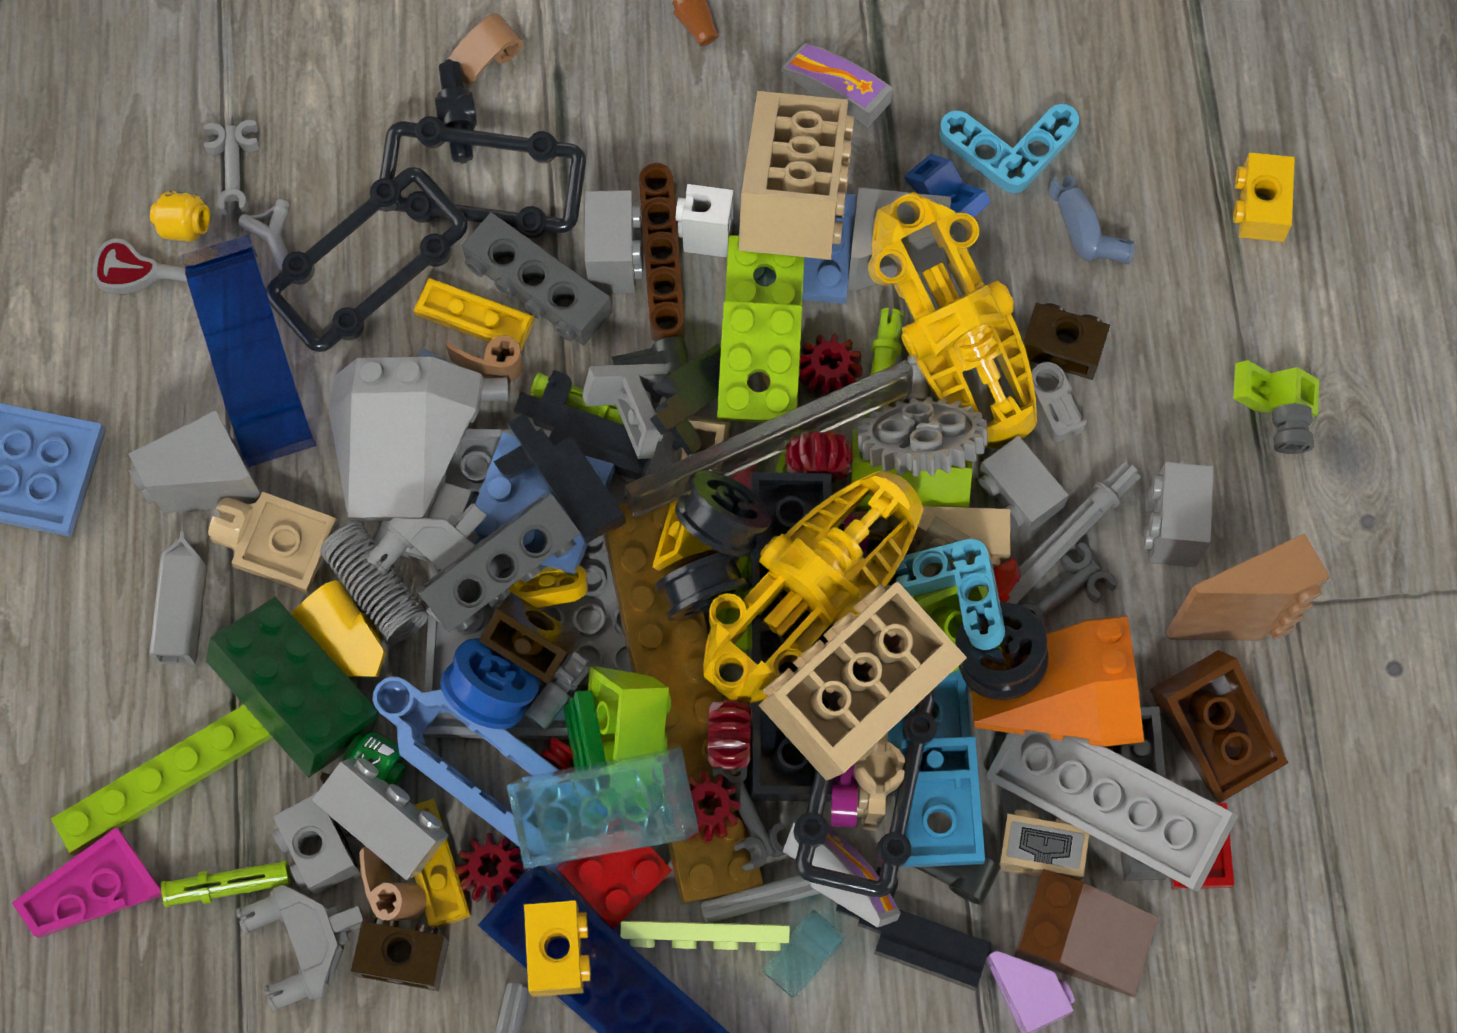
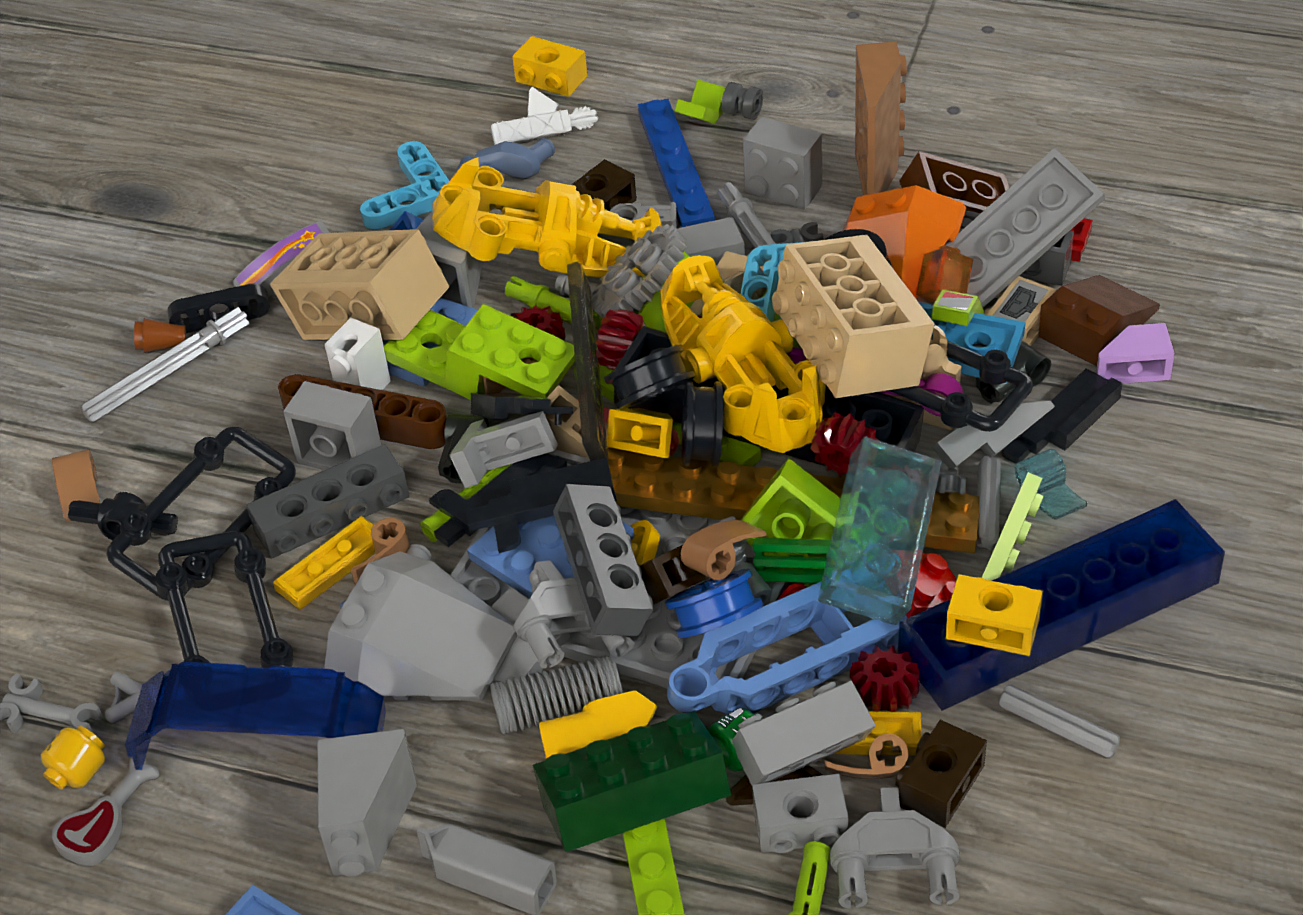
camera: 65 degrees left, 25 degrees down
(273, 538) = (464, 769): tan plate -> none
(533, 659) = (712, 549): none -> medium nougat panel
(664, 44) = (127, 388): none -> light grey axle
(752, 51) = (240, 294): none -> black beam
(982, 782) = (956, 307): none -> lime slope
(1031, 753) = (944, 270): none -> clear orange brick
(1160, 398) = (675, 163): none -> blue plate
(1170, 229) = (542, 121): none -> white piece

